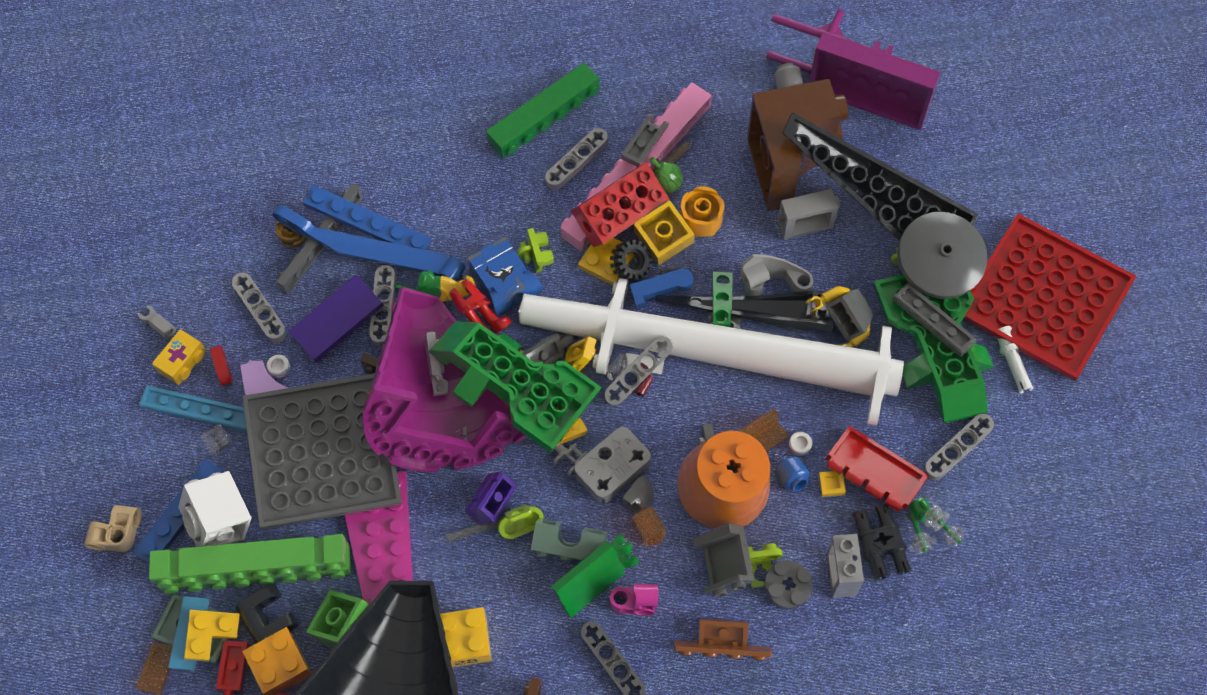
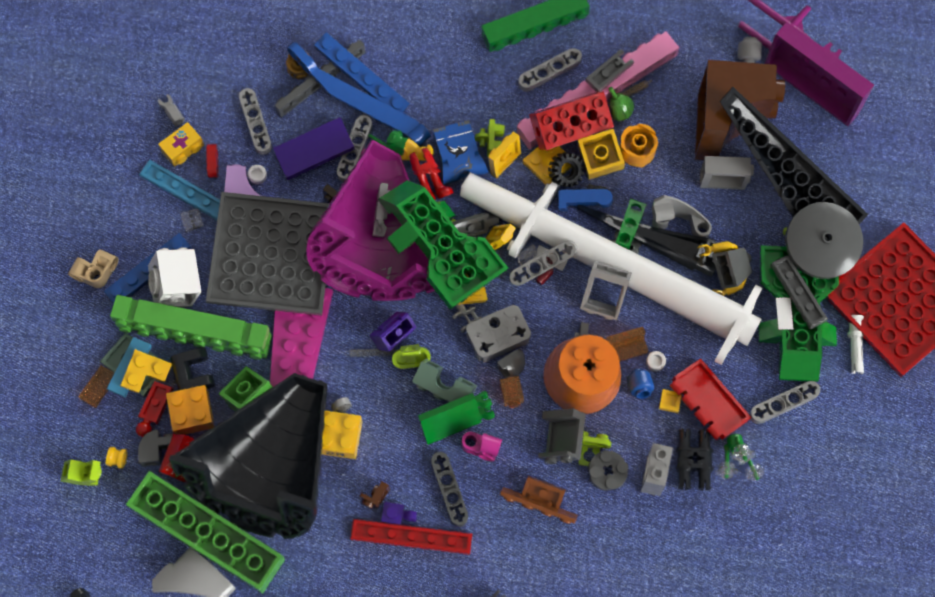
camera: 15 degrees right, 5 degrees up
(455, 602) = (341, 405): none -> light grey tile
(556, 263) = (504, 154): none -> yellow plate
(720, 359) = (609, 274): none -> light grey window
(926, 347) = (784, 313): none -> white sticker

